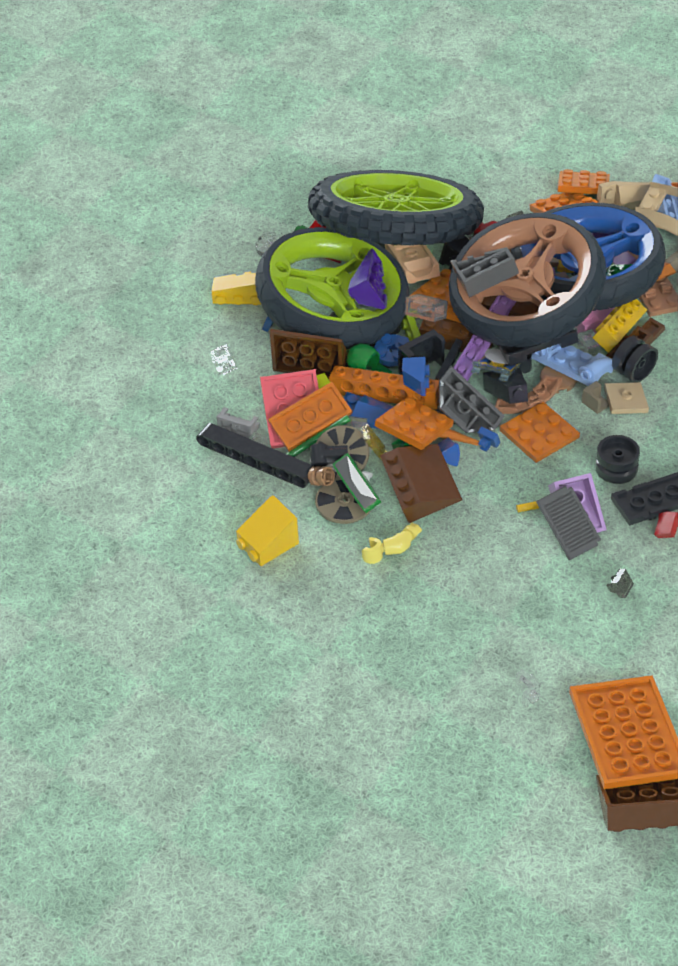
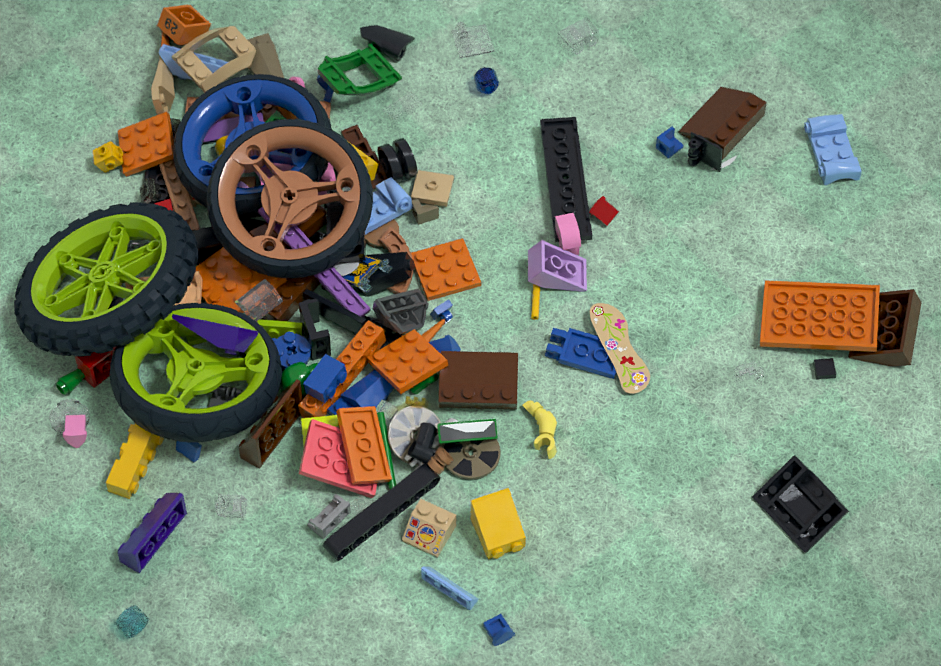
camera: 75 degrees left, 10 degrees up
(92, 331) = (132, 621): none -> clear light blue wheel
(163, 567) = (498, 630): none -> blue tile
(179, 320) = (152, 531): none -> dark purple slope
(195, 520) = (448, 587): none -> light blue slope
(250, 489) = (429, 528): none -> tan slope
(257, 248) = (75, 430): none -> bright pink tile
(360, 366) = (325, 378): none -> blue brick
(389, 767) = (800, 503): none -> black slope
(415, 374) = (363, 335): blue slope -> none
(485, 271) = (280, 227): dark grey wedge -> none
(494, 555) = (580, 351): none -> blue tile
(525, 566) = (613, 334): none -> tan sticker
(538, 188) = (108, 156): none -> yellow brick
(569, 522) = (578, 280): dark grey window -> none
(569, 756) = (824, 368): none -> black tile
(581, 182) = (119, 116): orange plate -> none
(616, 496) = (568, 233): none -> bright pink brick
(617, 459) = (514, 219): black wheel -> none
(620, 583) = (657, 268): clear smoke tile -> none

